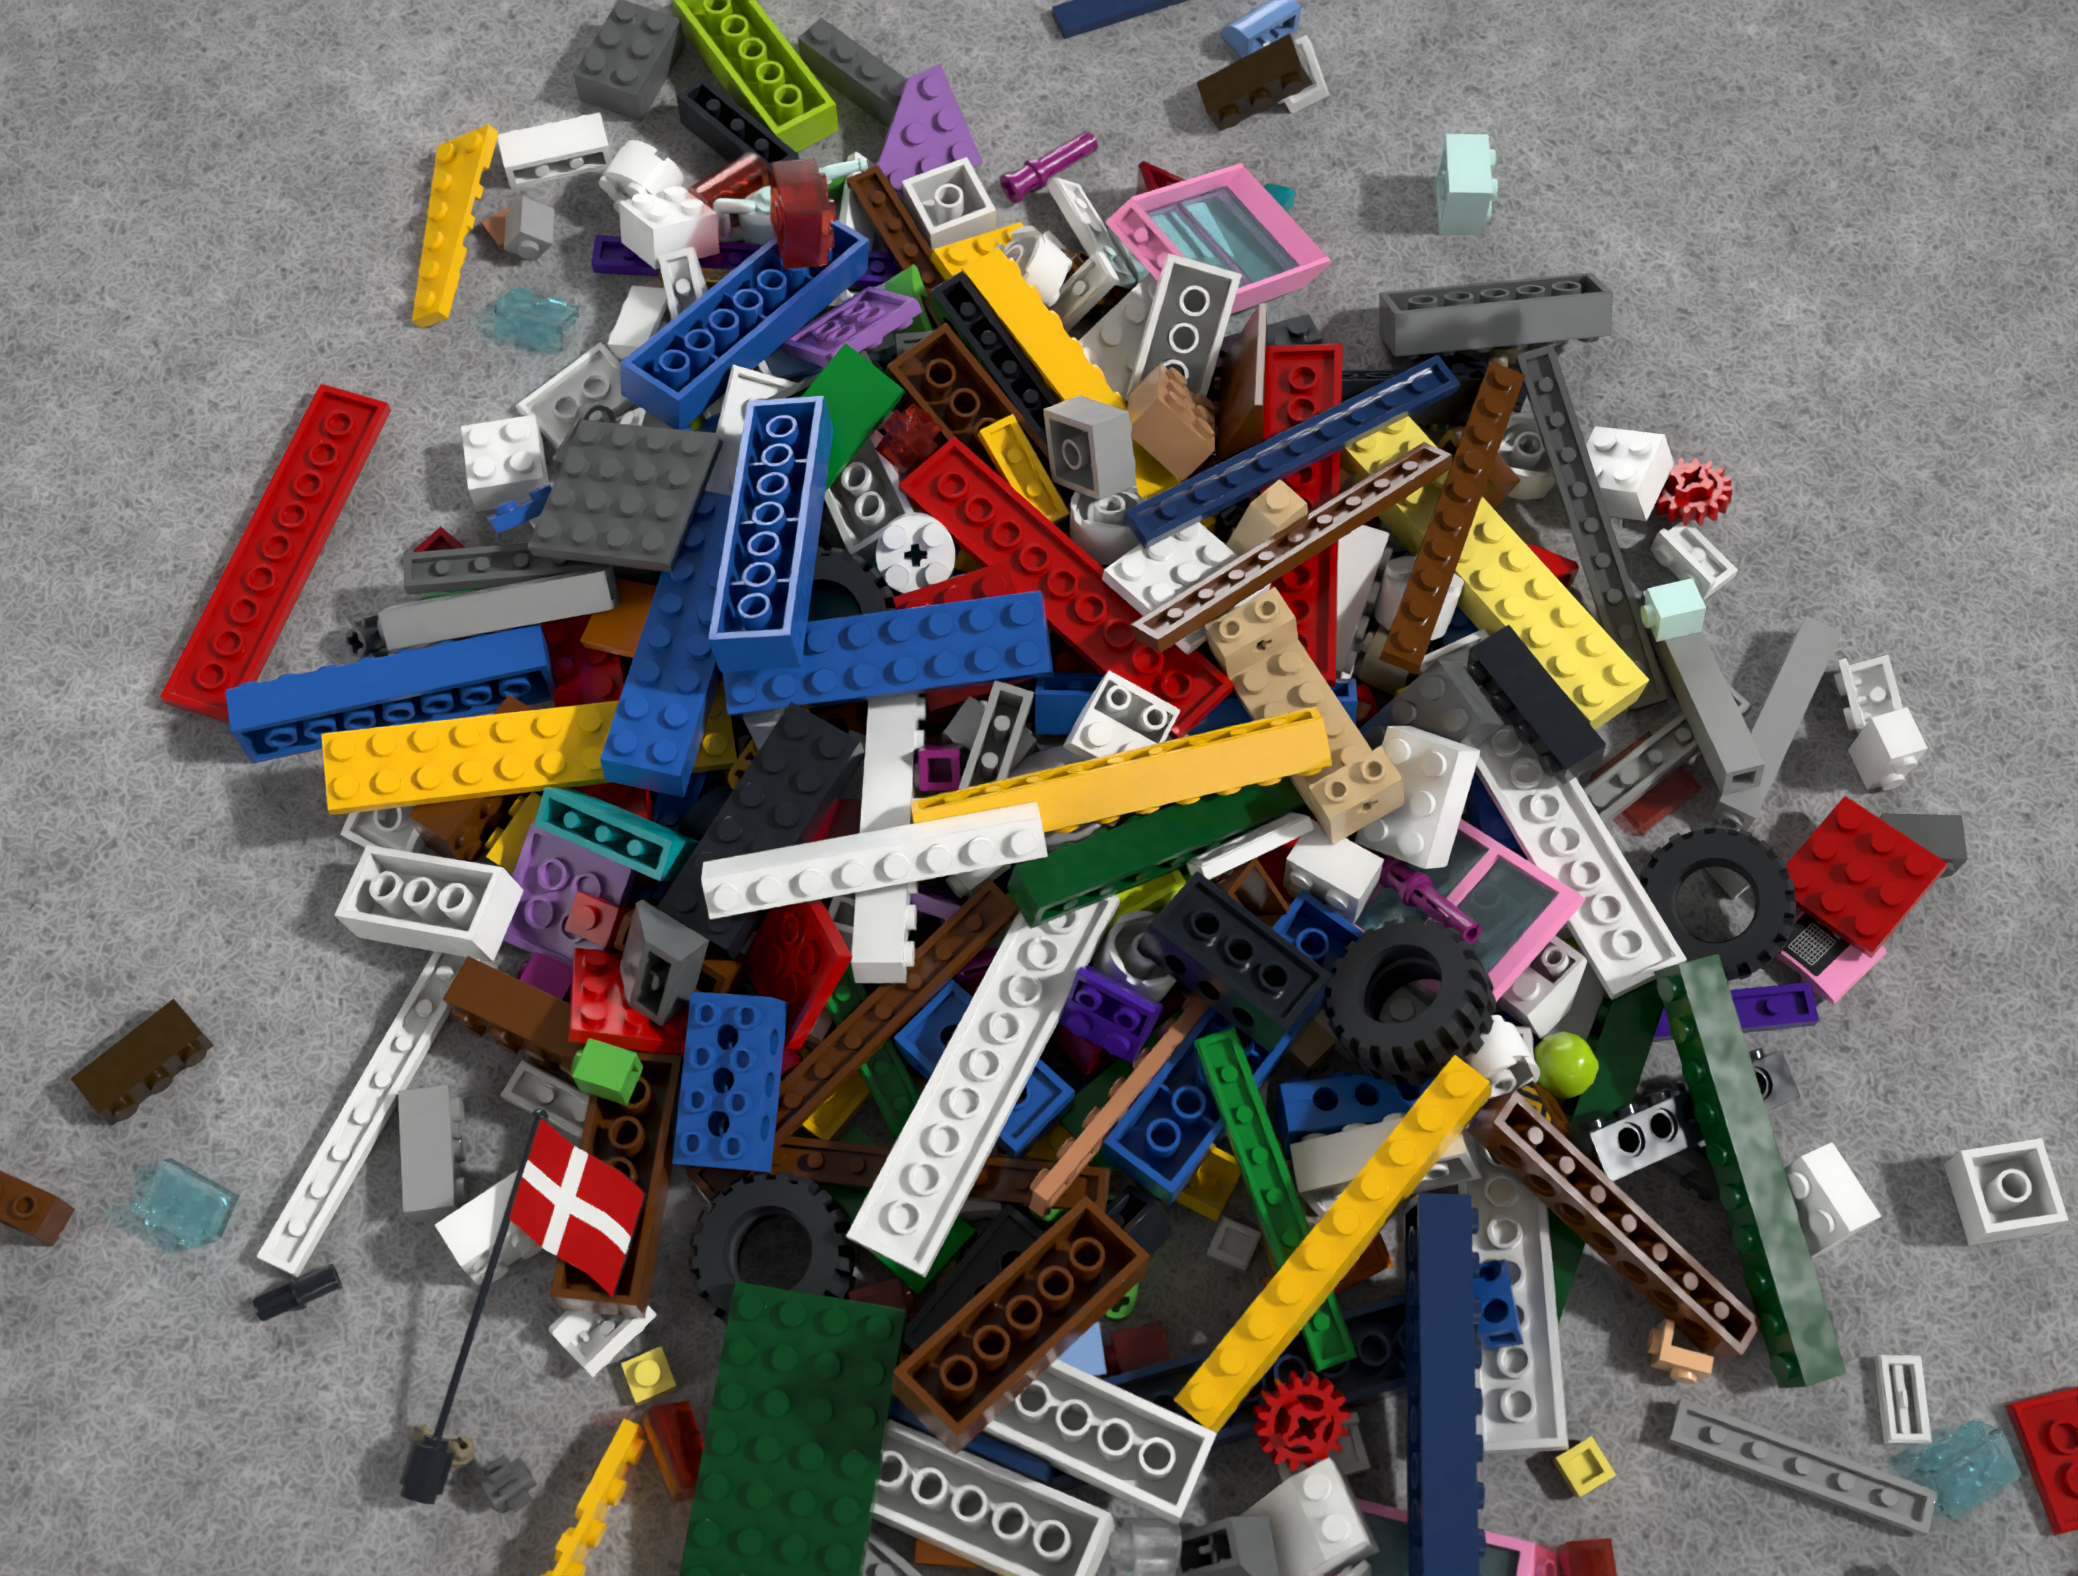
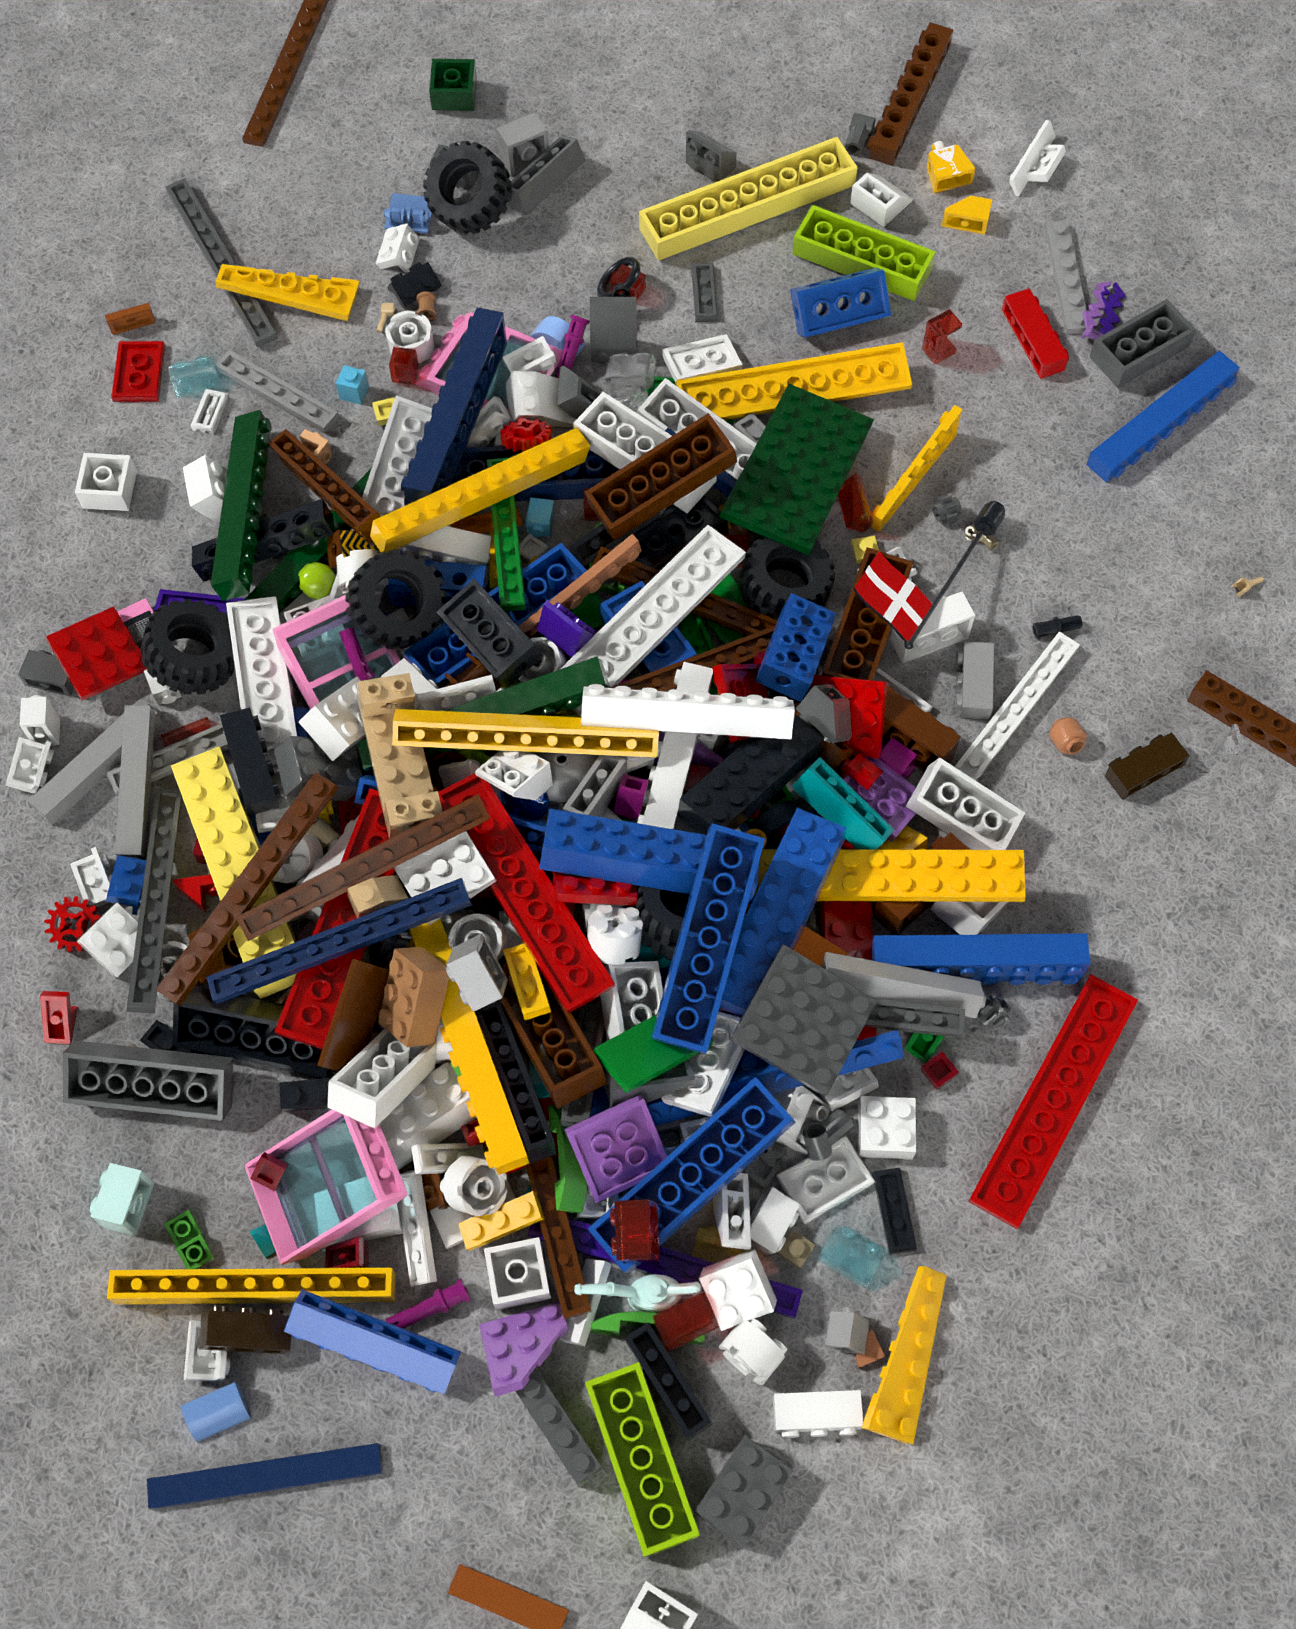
camera: 165 degrees left, 0 degrees up
(186, 1204) = (1121, 679): clear light blue bracket -> none
(272, 1086) = (1068, 735): none -> nougat head
(485, 378) = (894, 1211): none -> black tile
(603, 313) = (796, 1249): none -> dark tan plate
(606, 1071) = (867, 662): bright green brick -> none
(908, 438) = (599, 1019): clear red brick -> none
(1101, 100) = (372, 1341): none -> brick
(1232, 1295) = (540, 517): none -> medium azure brick
(1271, 134) = (250, 1285): none -> yellow brick
(1295, 249) = (269, 1171): none -> dark red plate
(1362, 176) = (189, 1240): none -> bright green slope
(1381, 1466) = (489, 423): none -> white bracket
(1499, 1314) = (402, 460): blue leg -> none
(1642, 546) = (127, 882): none -> blue bracket
(1651, 381) = (57, 1017): none -> slope
(1667, 1505) = (352, 384): none -> medium azure brick
(1673, 610) = (130, 822): light aqua brick -> none

